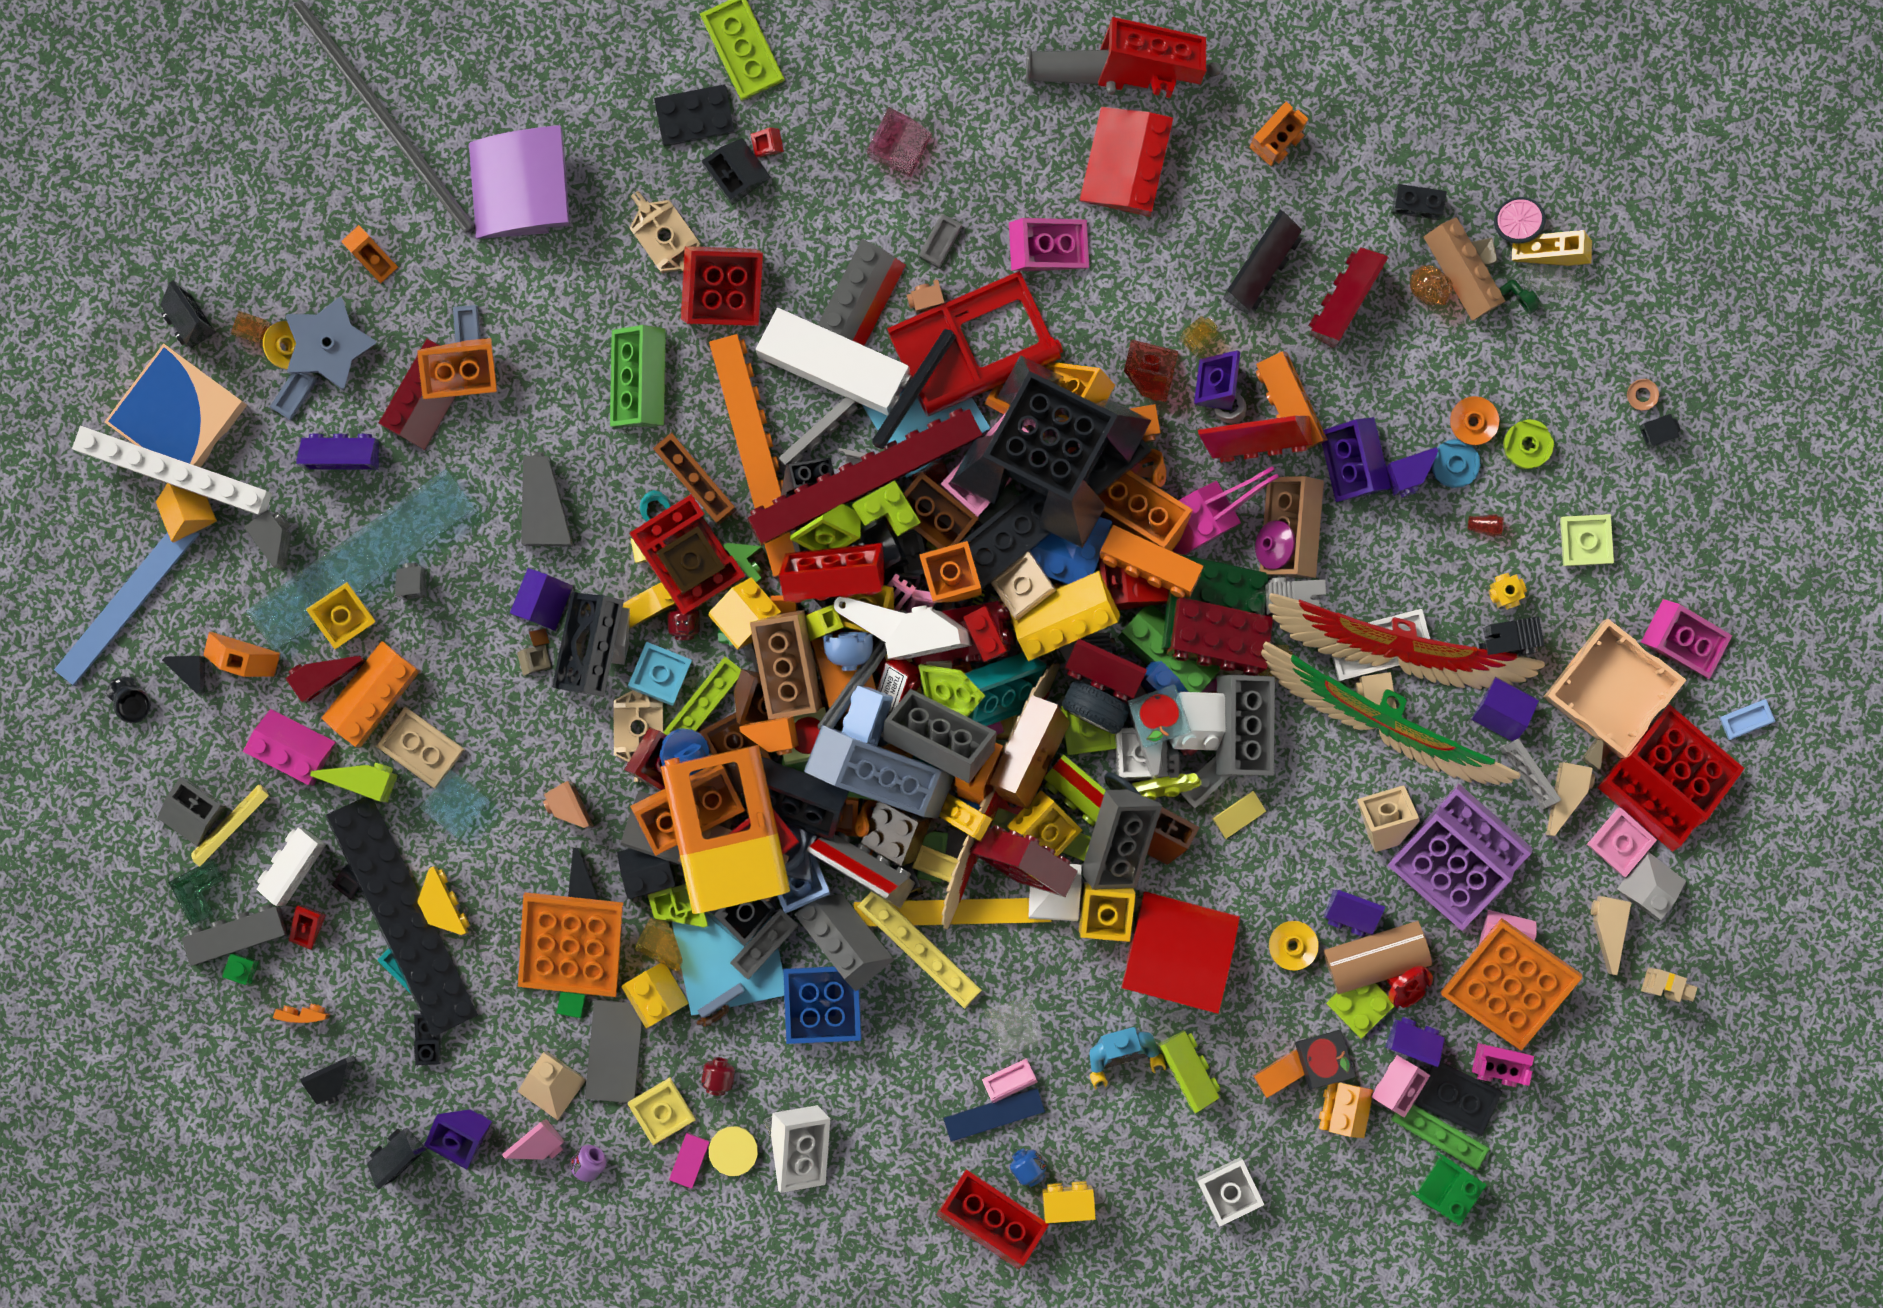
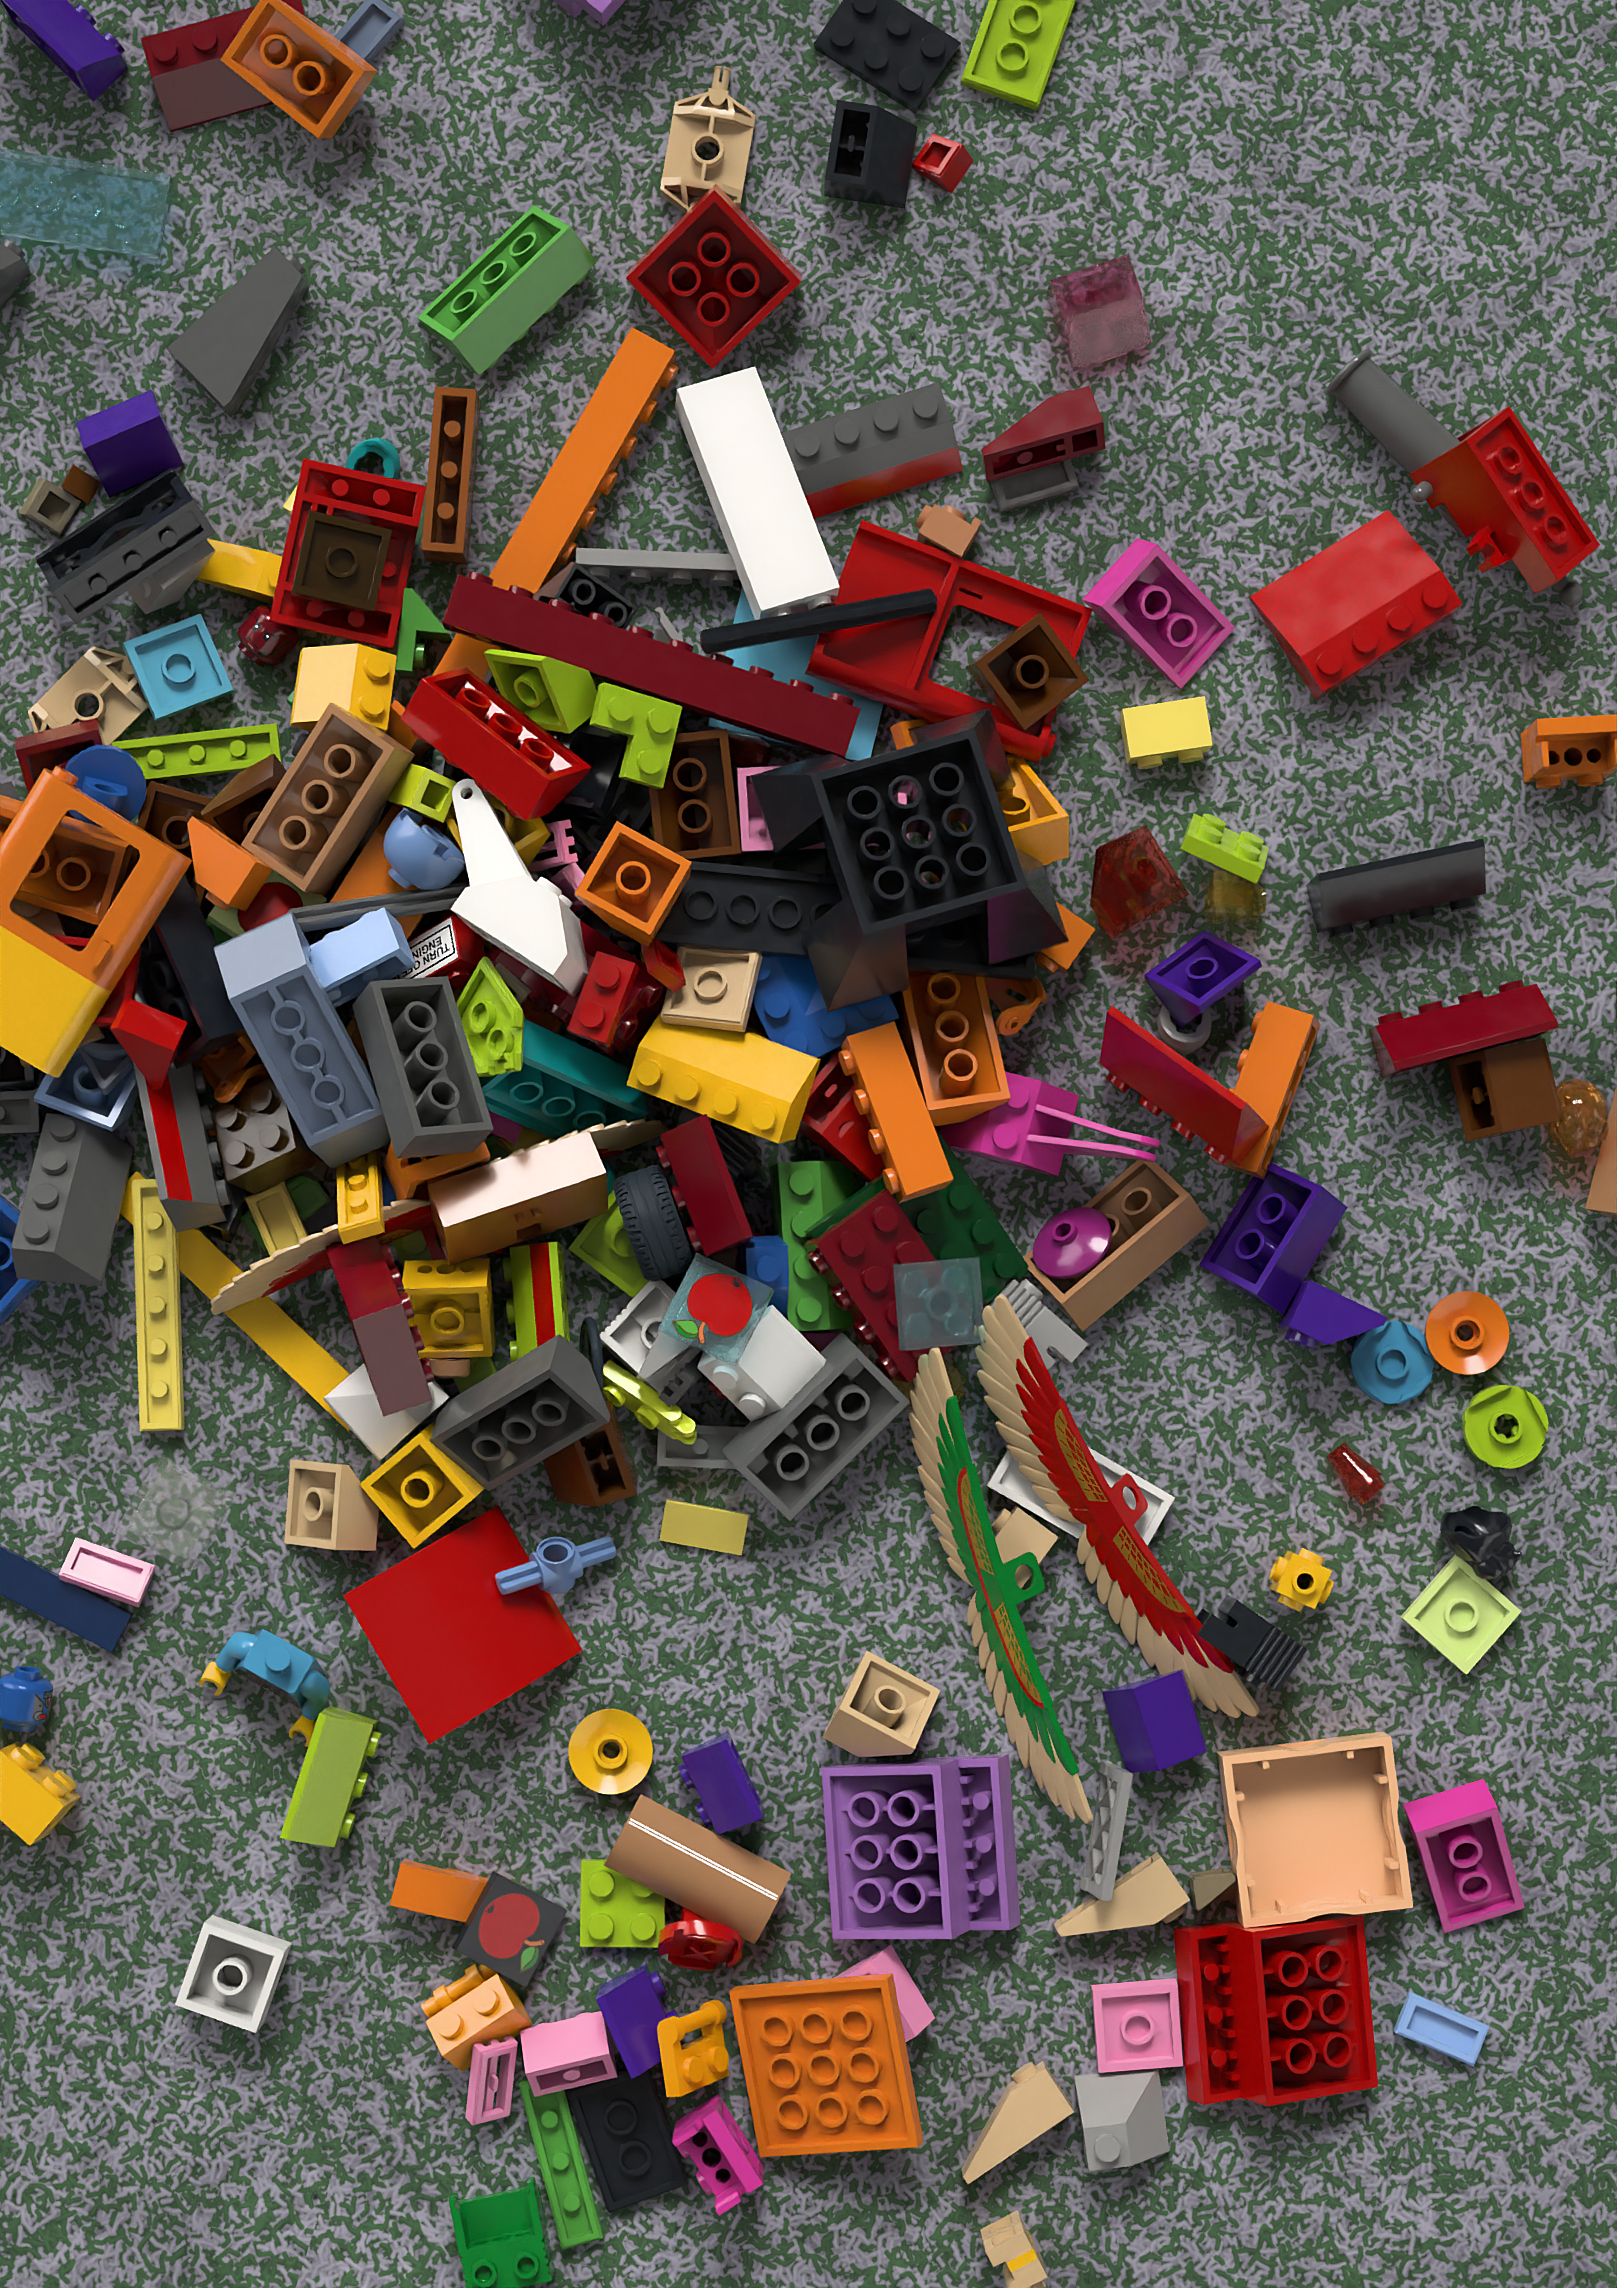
camera: 40 degrees right, 0 degrees up
(813, 837) = (148, 1038): none -> red slope
(929, 213) = (1049, 434): none -> dark red slope
(995, 595) = (664, 965): none -> red tile
(1020, 324) = (1028, 672): none -> reddish brown slope
(1071, 850) = (450, 1367): none -> medium nougat tile
(1075, 961) = (329, 1508): none -> tan slope
(1101, 292) = (1166, 732): none -> light yellow brick
(1175, 317) = (1232, 851): none -> lime plate
(1194, 891) = (555, 1565): none -> medium blue axle
(1247, 623) = (939, 1303): none -> clear light blue plate
(1378, 1132) = (485, 2083): none -> bright pink tile
(1391, 303) = (1505, 1089): none -> reddish brown slope
(1457, 1035) = (698, 2061): none -> light orange plate
(1565, 500) = (1481, 1539): none -> black hair

